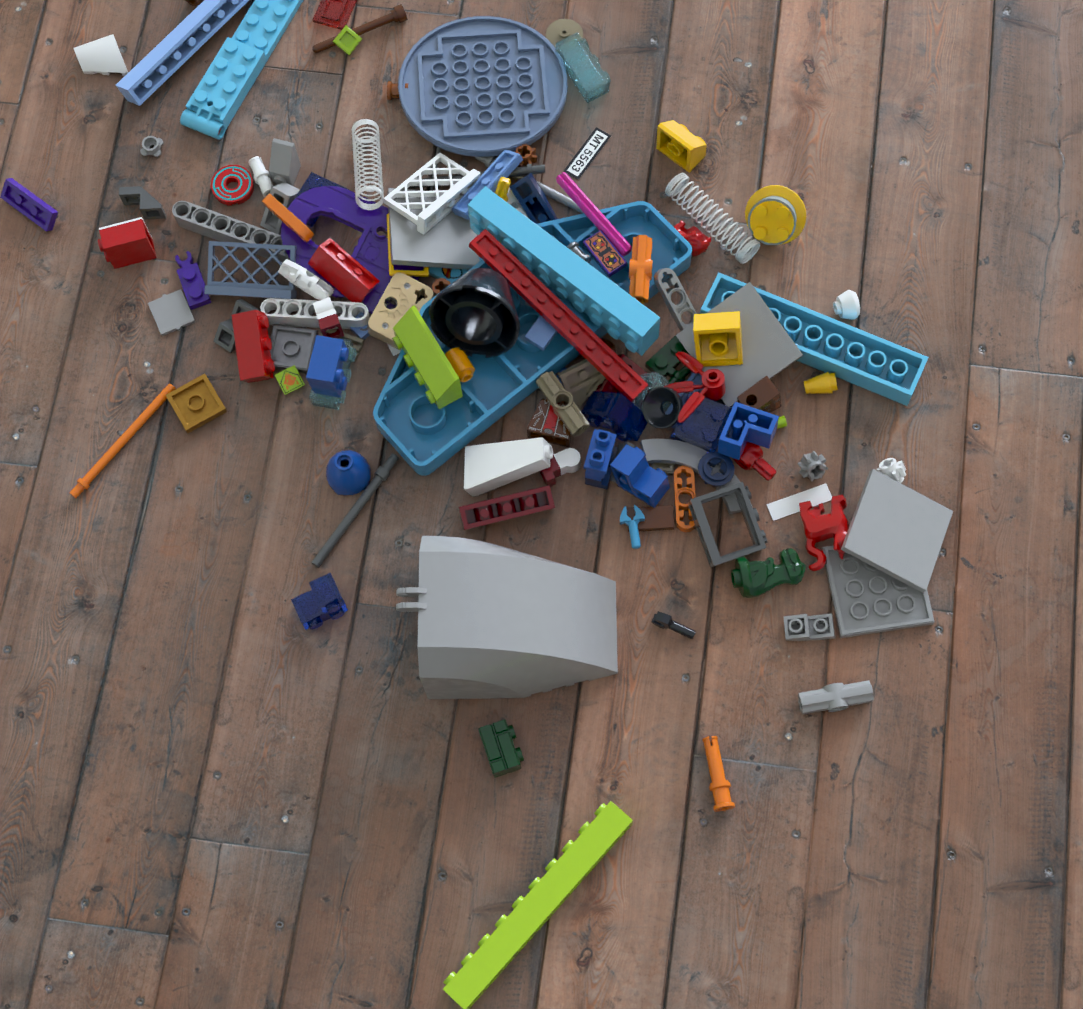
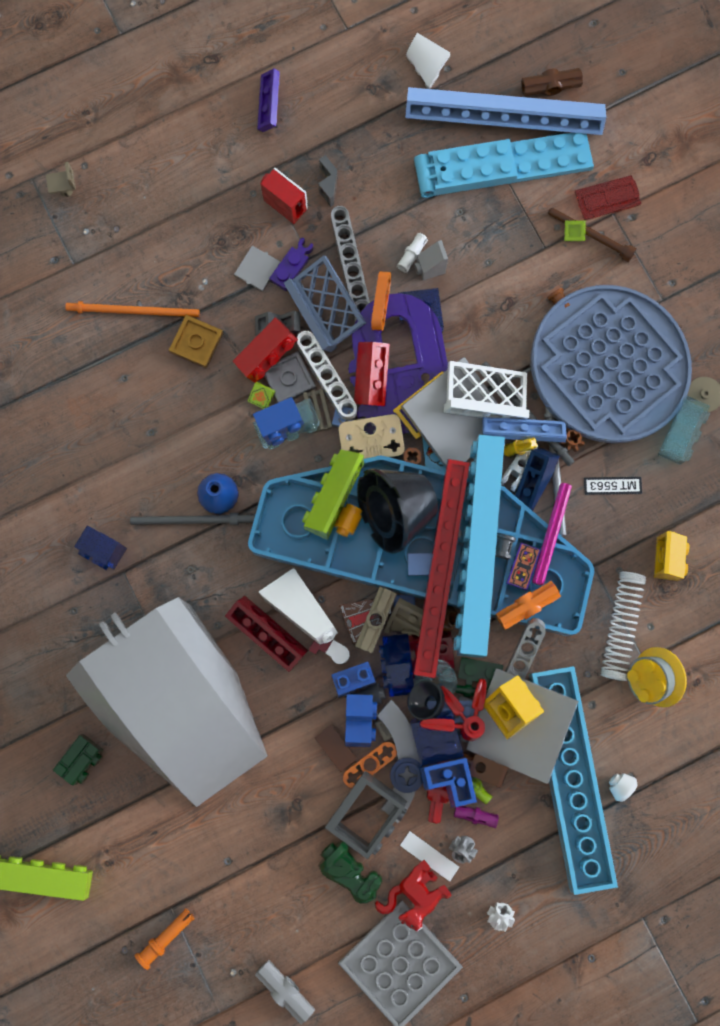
camera: 50 degrees right, 10 degrees up
(150, 141) = (380, 146): light grey plate -> none
(230, 174) = (391, 224): red tile -> none
(285, 195) = (402, 281): light grey slope -> none
(305, 280) = (343, 352): white hinge -> none
(327, 318) = (322, 391): leg -> none
(370, 188) = (495, 298): white piece -> none
(633, 525) = (318, 740): dark azure bar -> none
(665, 621) = (258, 820): black bar -> none
(695, 237) = (593, 622): red hair -> none
(791, 439) = (476, 816): none -> magenta pin
(809, 628) = (329, 932): light grey slope -> none
(821, 384) = (539, 809): yellow cone -> none
(897, 530) = (452, 955): light grey tile -> none

